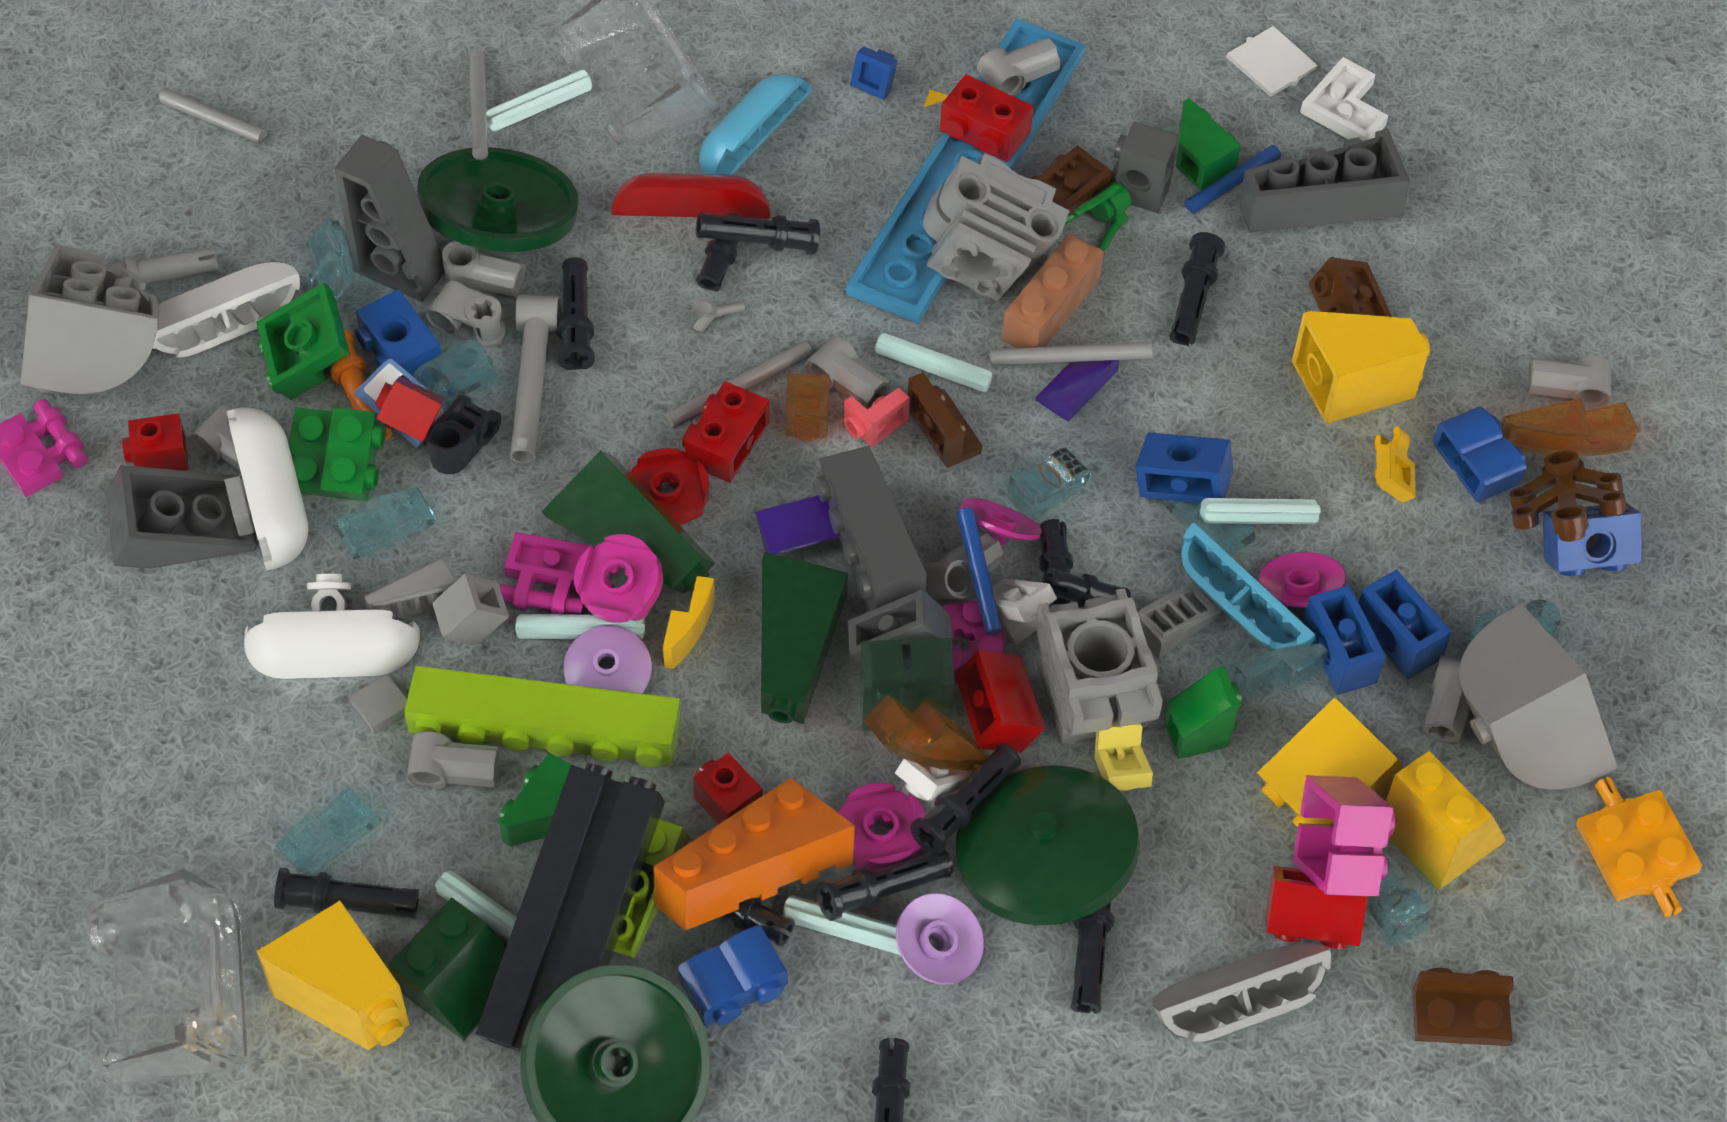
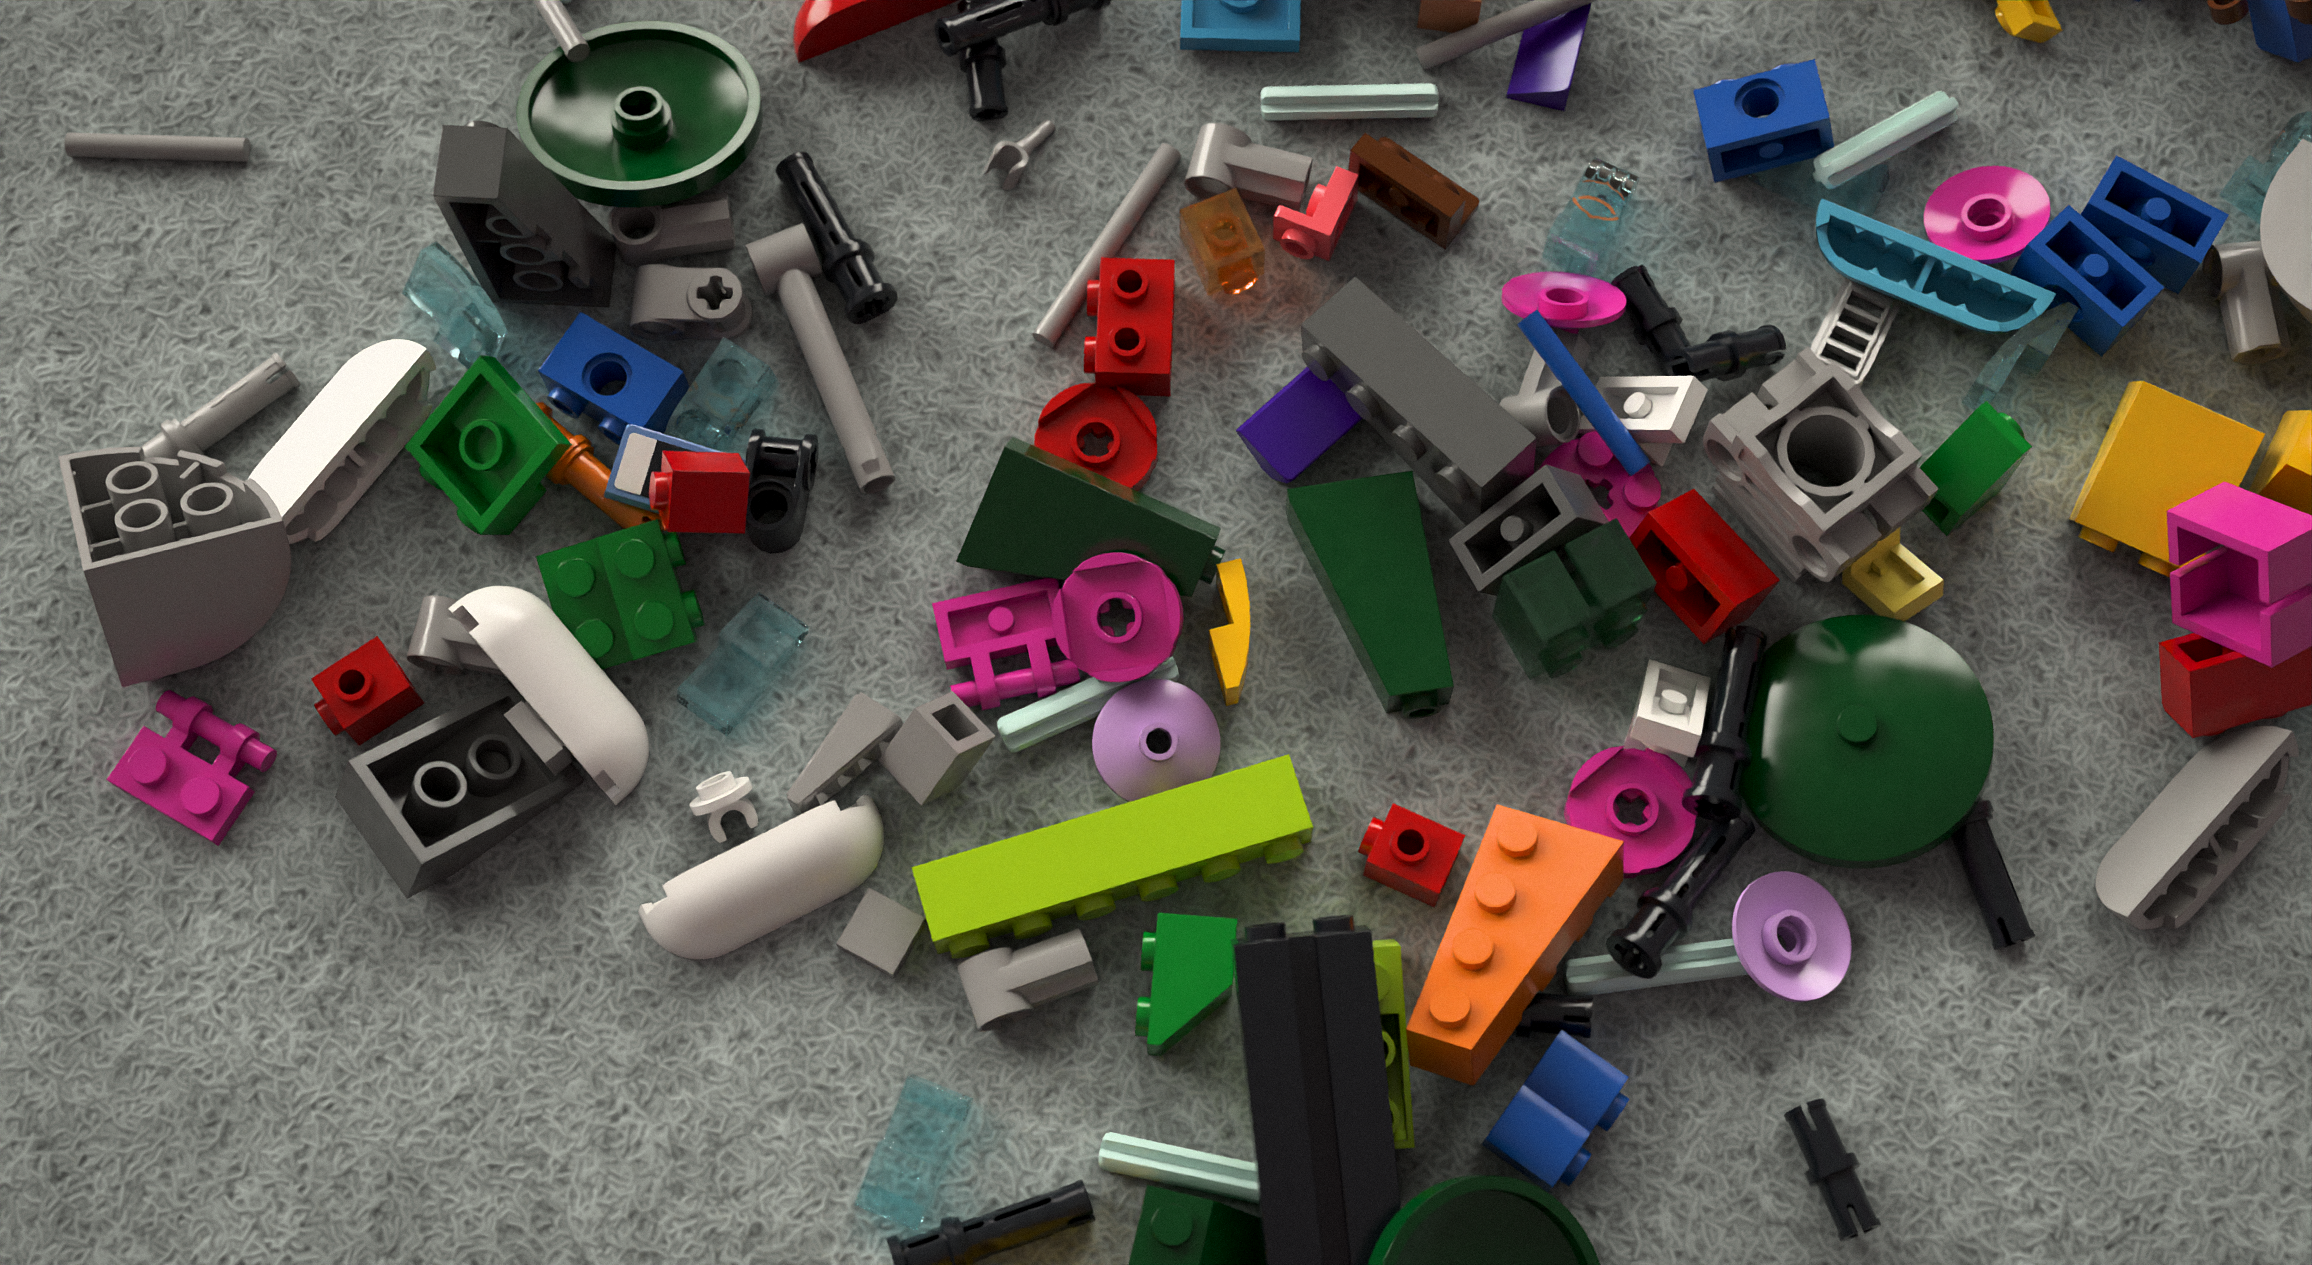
camera: 20 degrees left, 15 degrees up
(924, 736) = (1643, 669): clear orange slope -> none

